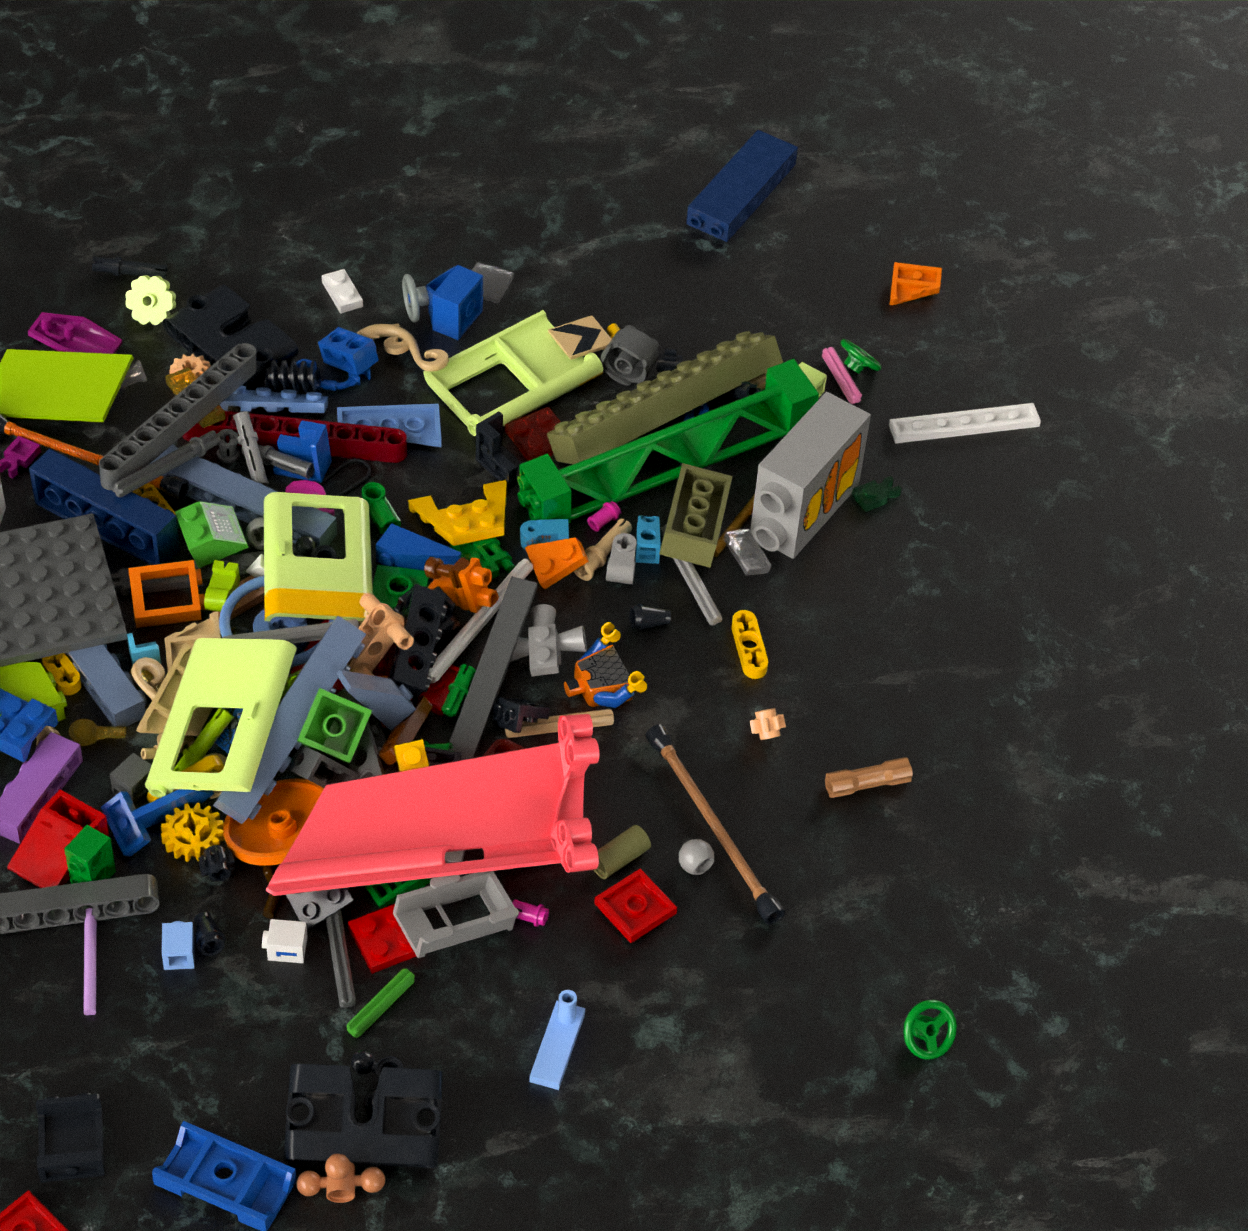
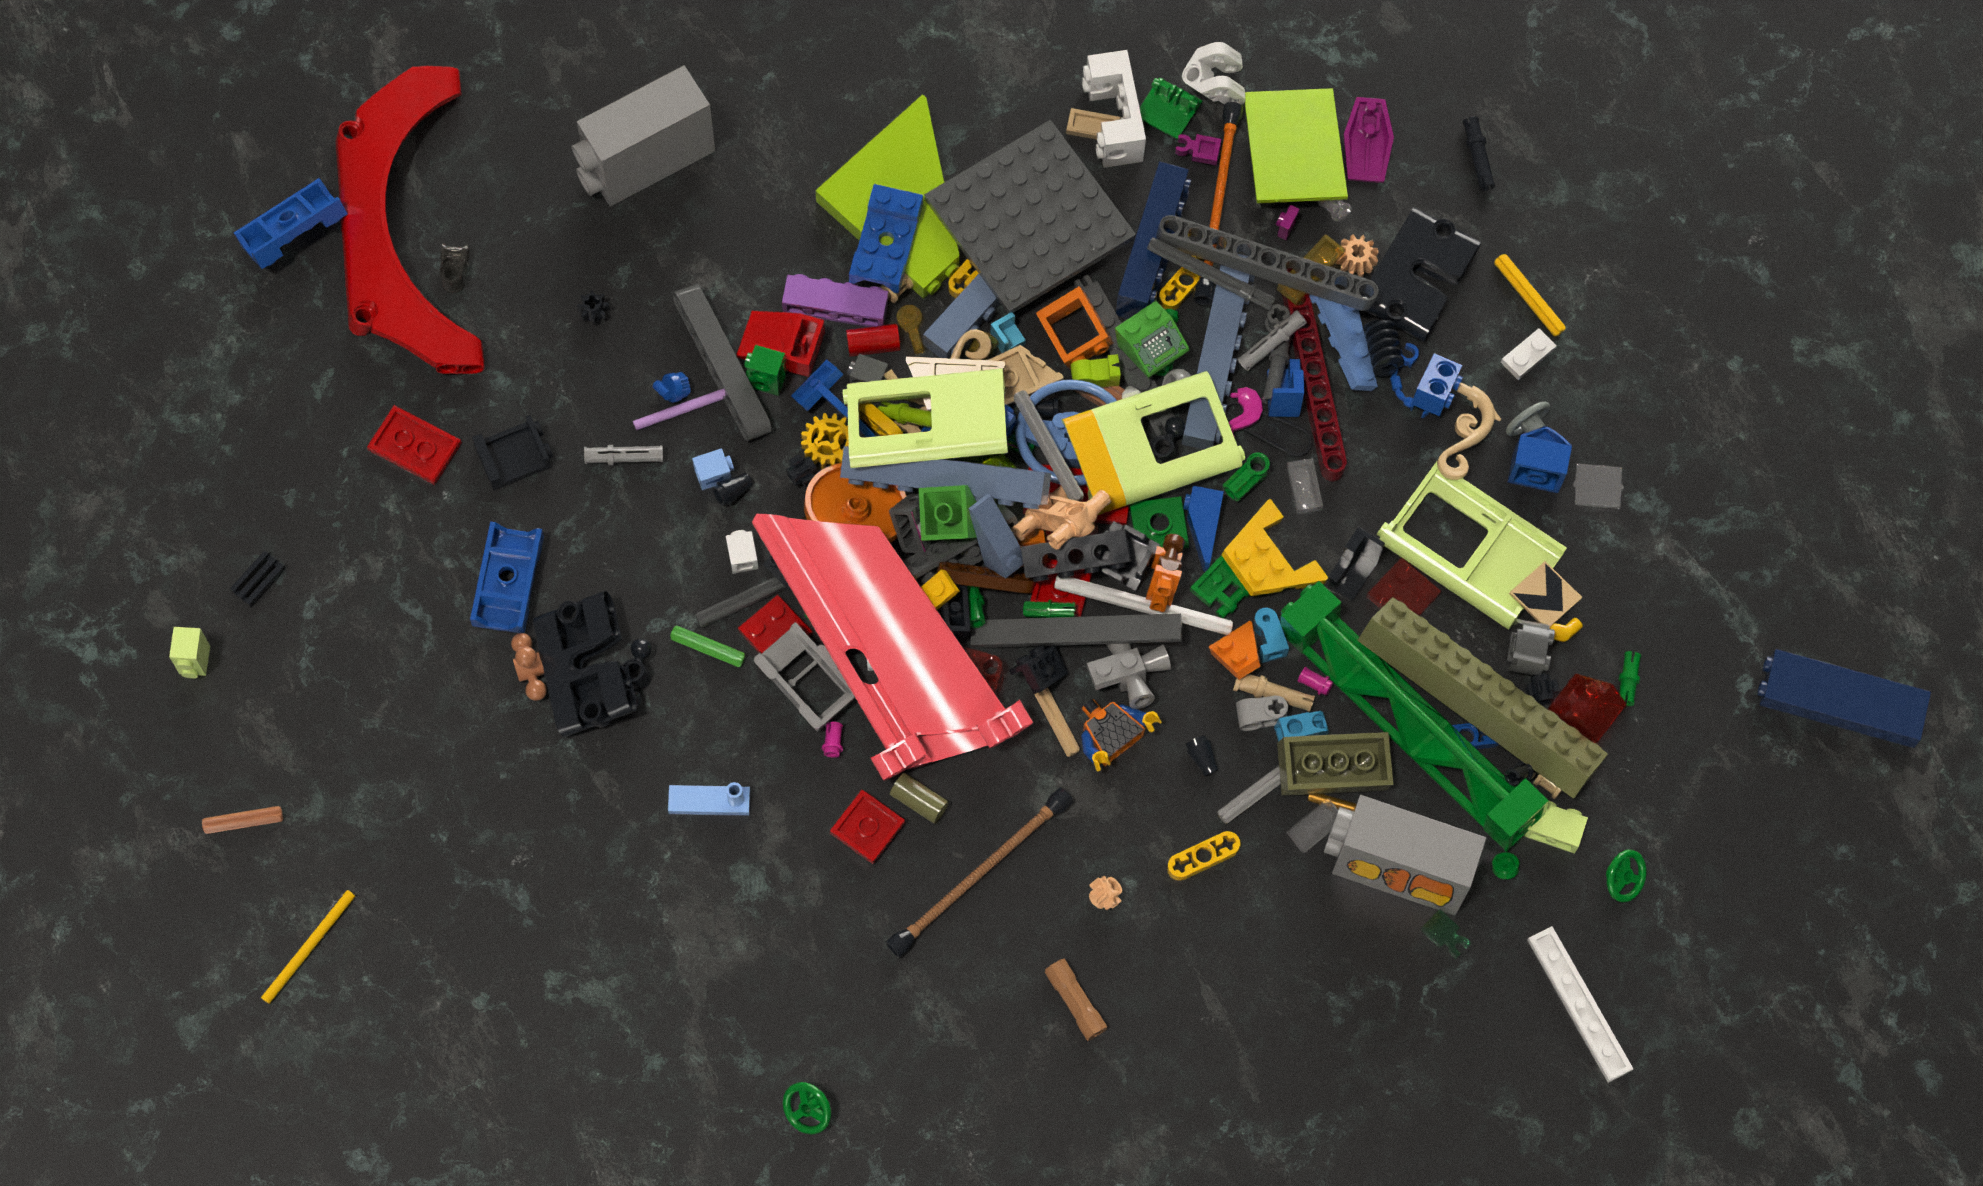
camera: 75 degrees right, 20 degrees up
(63, 959) = (673, 386): none -> blue piece
(93, 767) = (873, 340): none -> red brick
(117, 1038) = (623, 454): none -> light grey pin
(131, 411) = (1287, 221): none -> magenta plate
(150, 299) = (1433, 187): yellowish green plant -> none
(285, 274) = (1529, 295): none -> yellow axle
(405, 472) = (1304, 486): none -> clear plate
(418, 421) = (1367, 464): medium blue wing -> none
(677, 309) = (1629, 677): none -> green pin
(693, 334) = (1588, 705): none -> clear red slope
(696, 856) = (934, 865): light grey piece -> none
(841, 375) = (1597, 865): bright pink axle -> none
(913, 282) = (1767, 909): orange wing -> none

